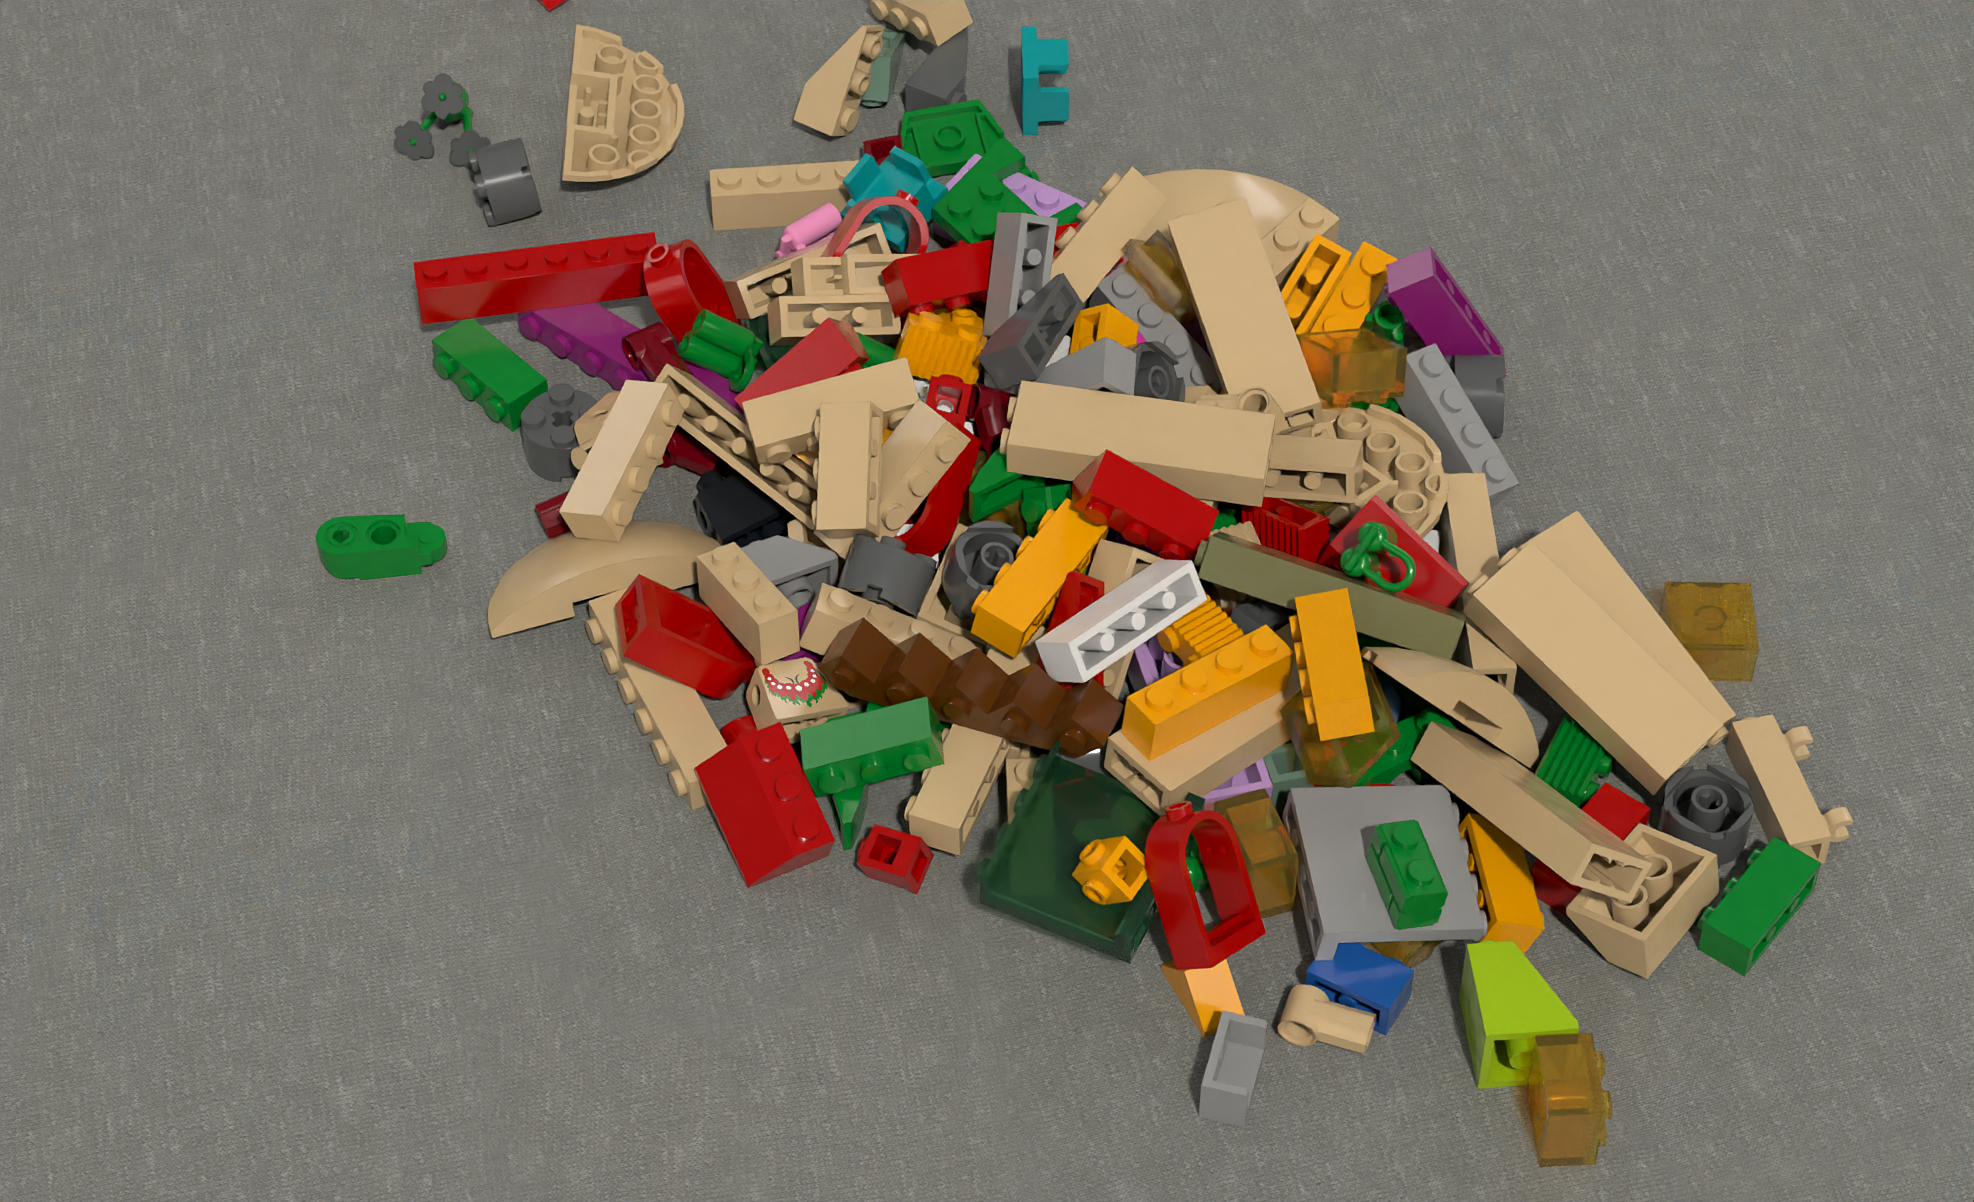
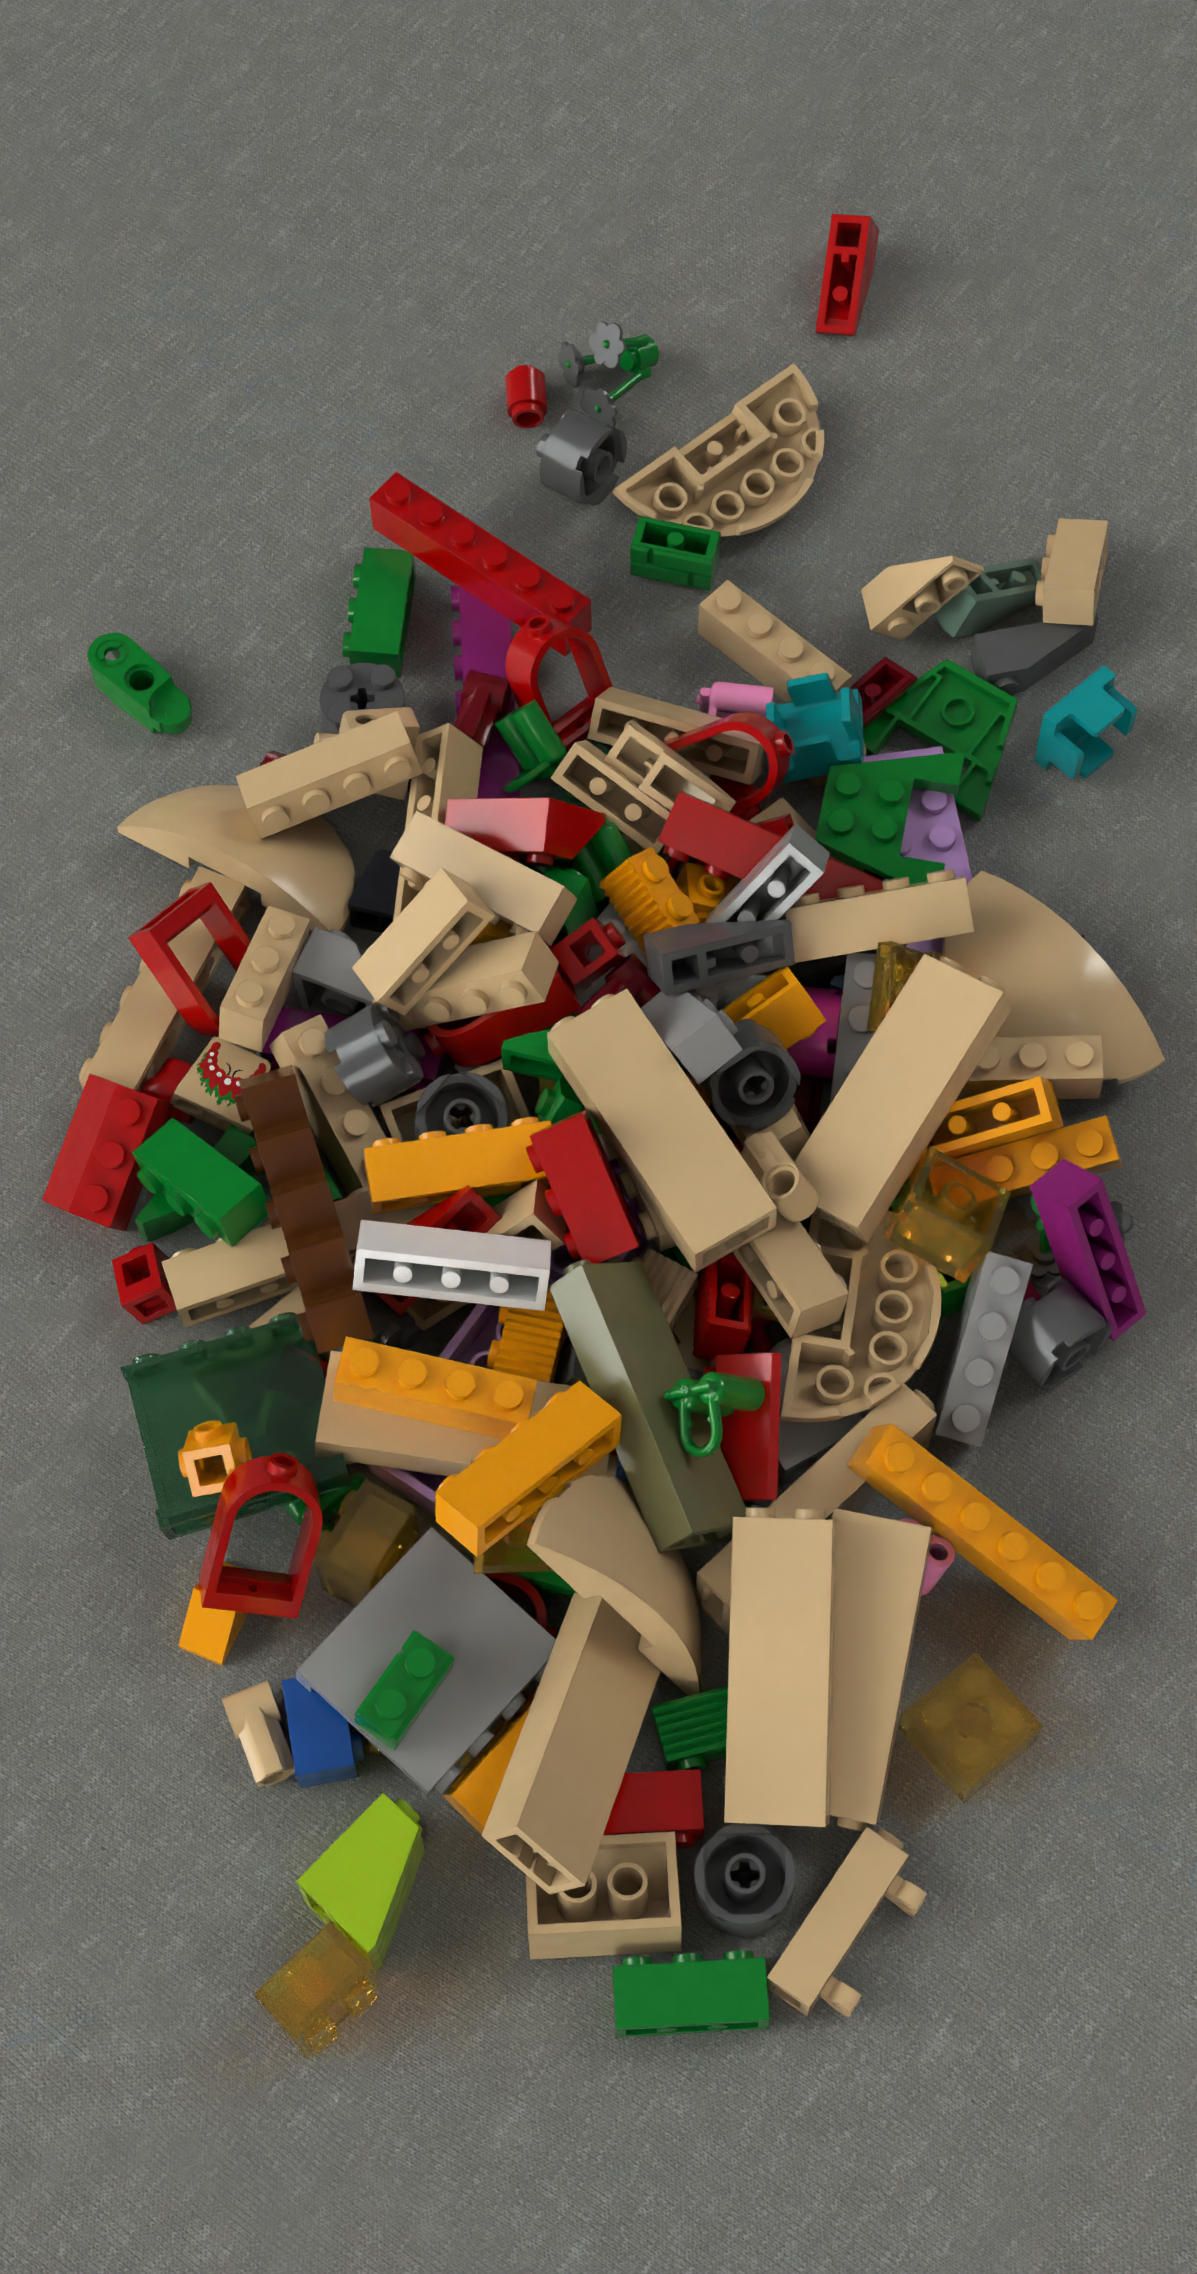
camera: 50 degrees right, 15 degrees up
(407, 182) = (526, 396): none -> red brick
(647, 187) = (675, 553): none -> green brick
(1233, 1068) = (145, 1698): light grey panel -> none
(1618, 512) = (982, 1532): none -> light orange brick

